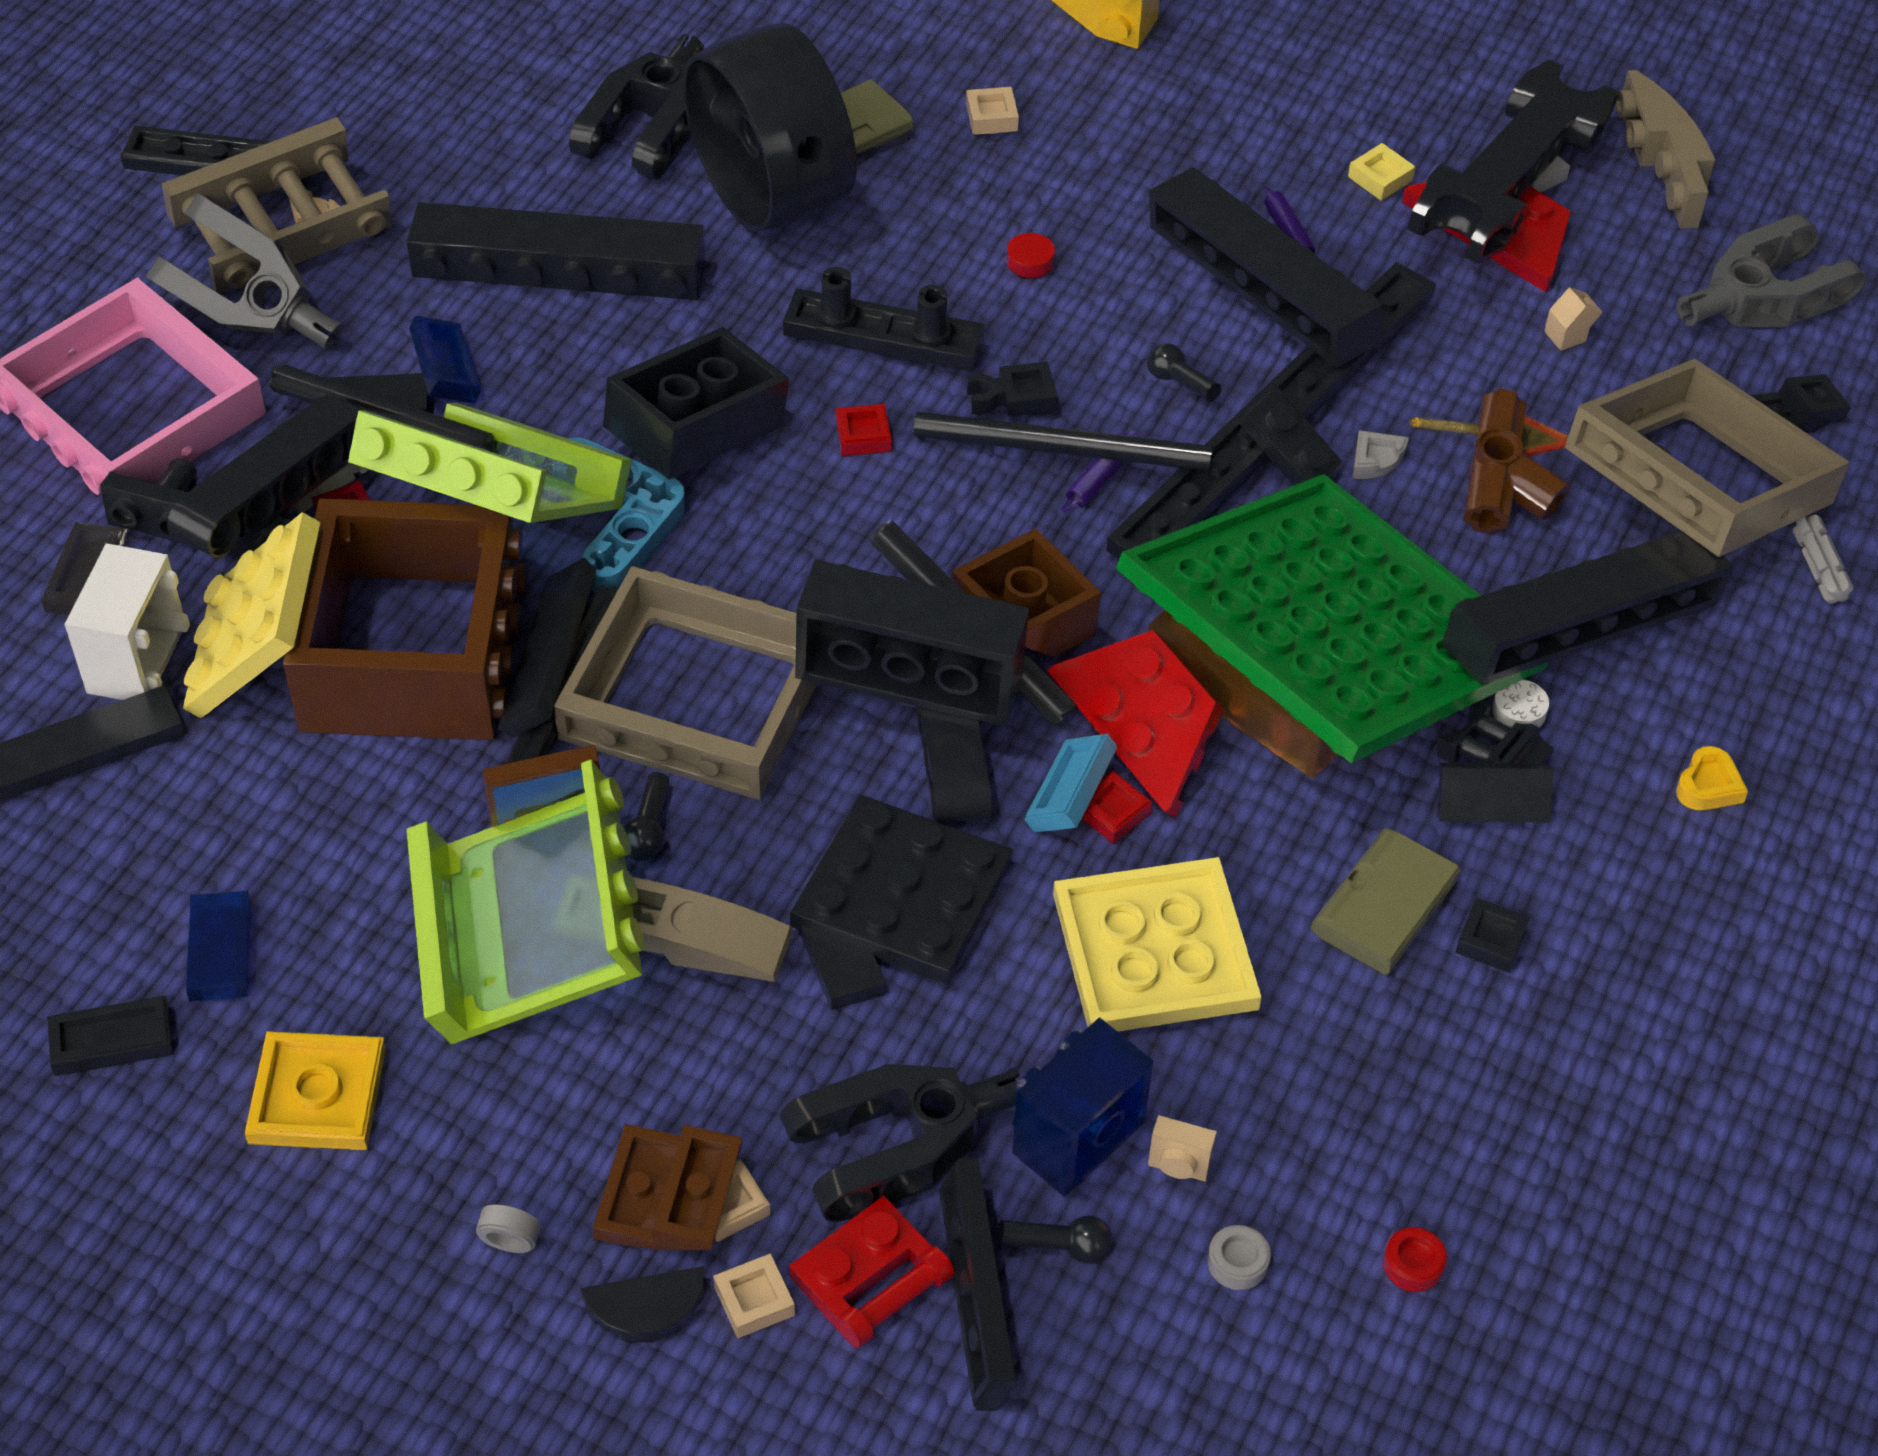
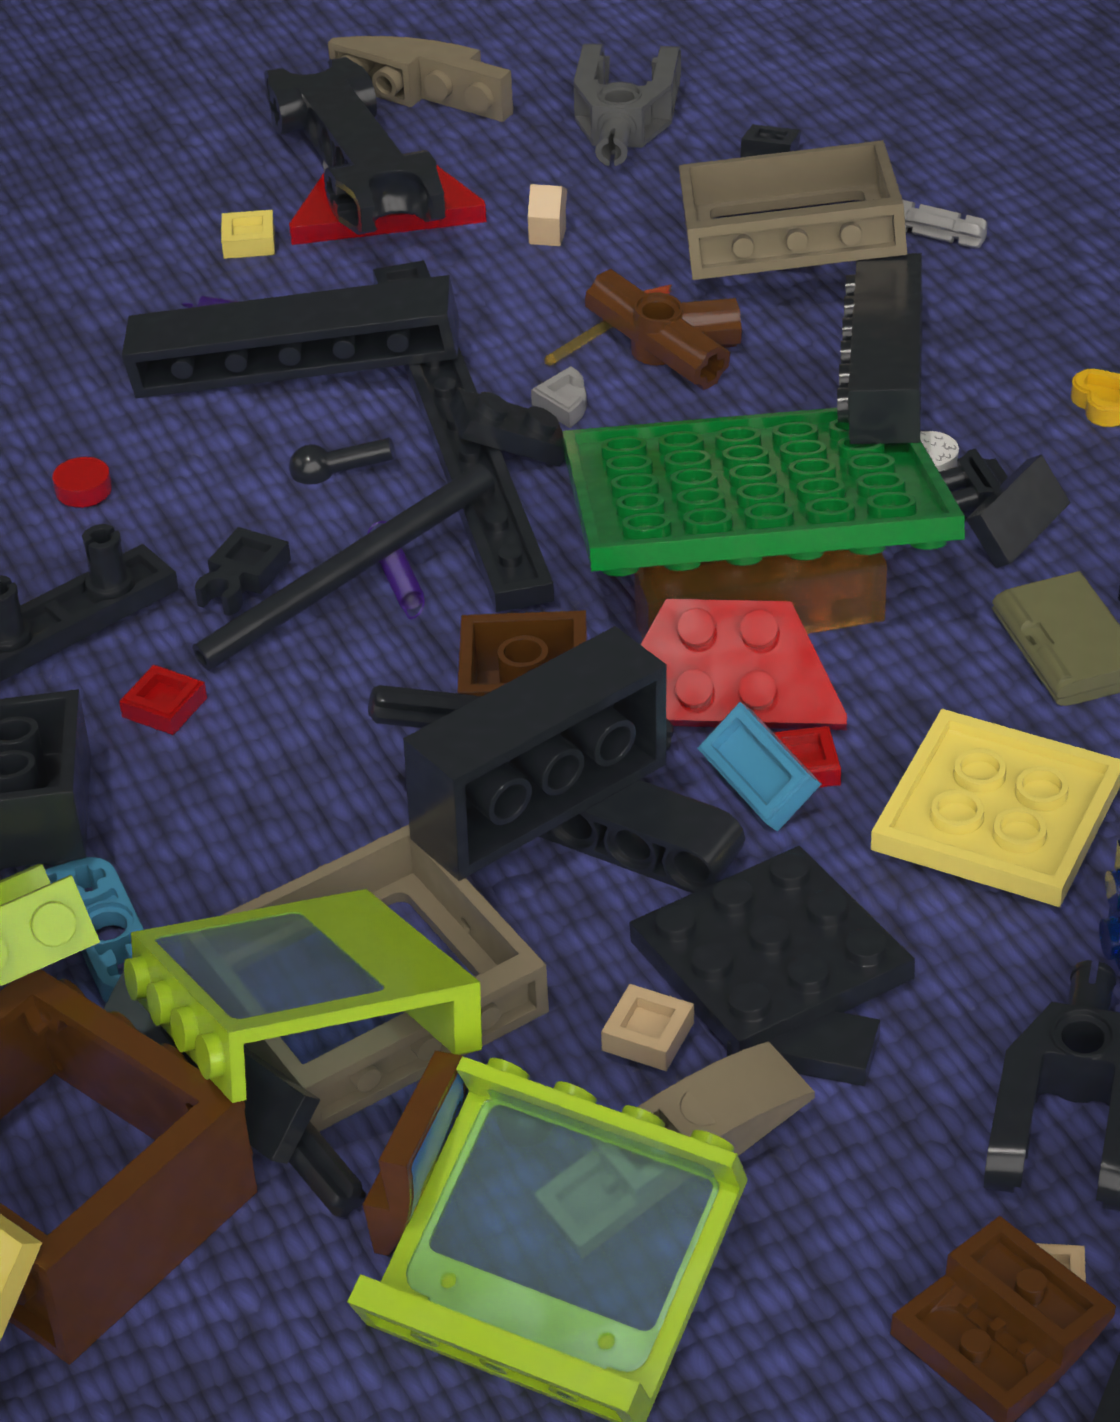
camera: 50 degrees left, 10 degrees down
(607, 641) = (292, 973): none -> lime panel
(772, 857) = (647, 1027): none -> tan plate

